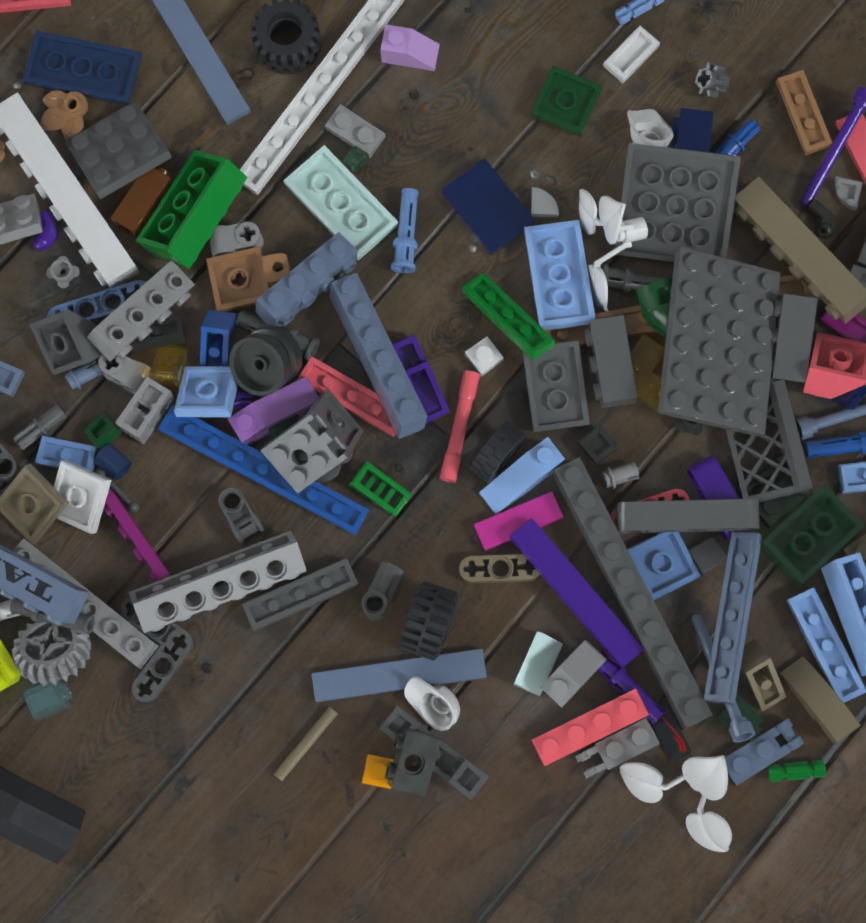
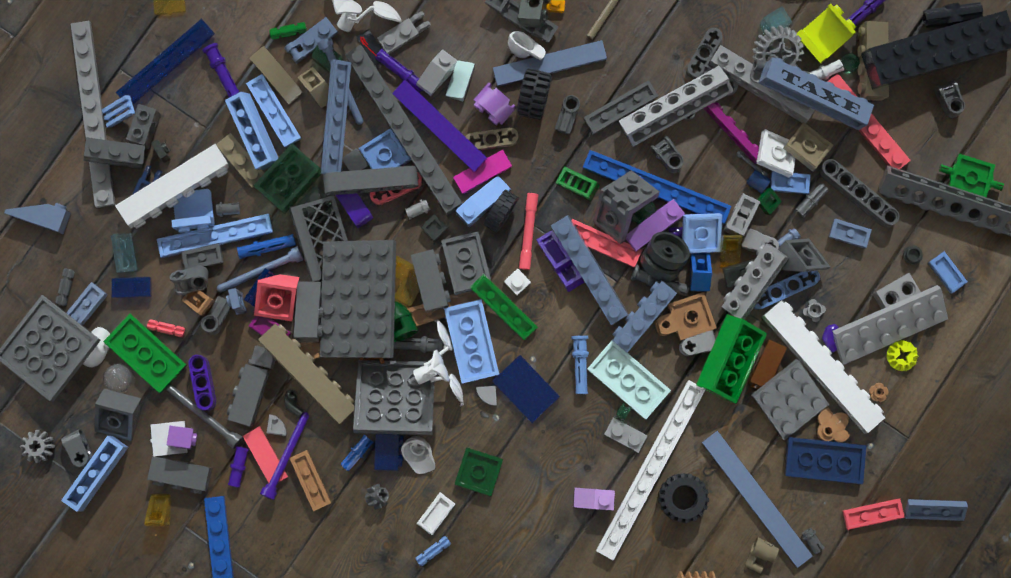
camera: 170 degrees right, 5 degrees up
(491, 614) = (494, 104): none -> medium lavender brick
(590, 727) = (422, 42): coral plate -> none

